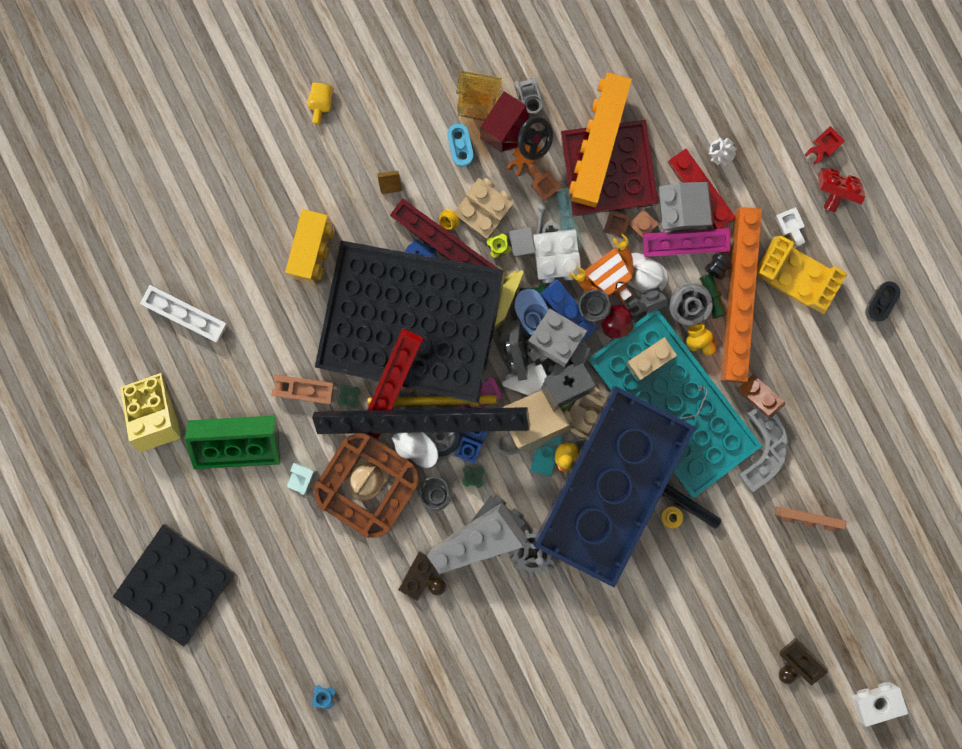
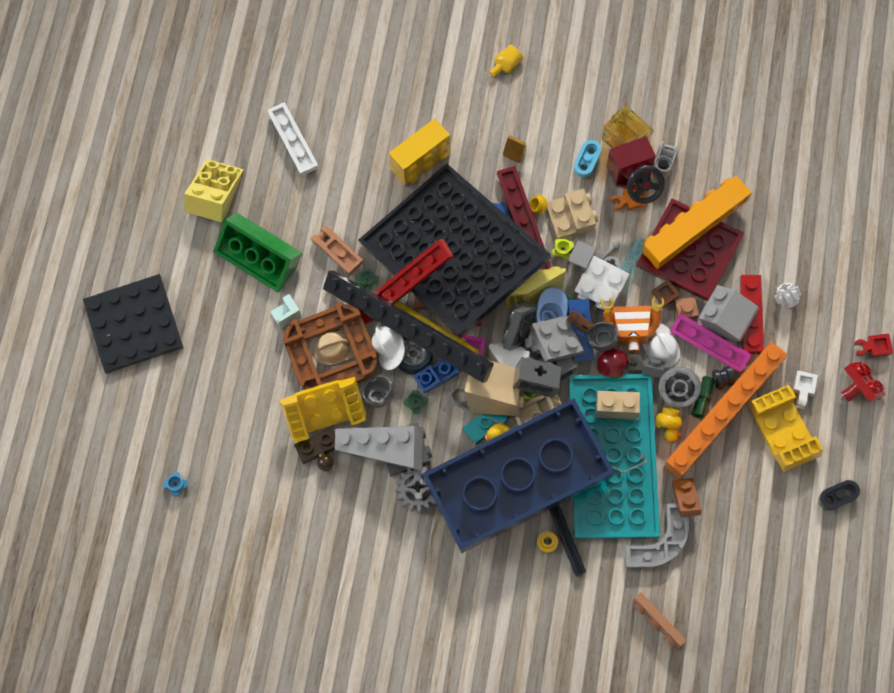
camera: 35 degrees right, 15 degrees down
(399, 543) = (322, 407): none -> yellow plate
(544, 184) = (630, 227): dark orange plate -> none
(566, 307) = (579, 321): none -> reddish brown pin

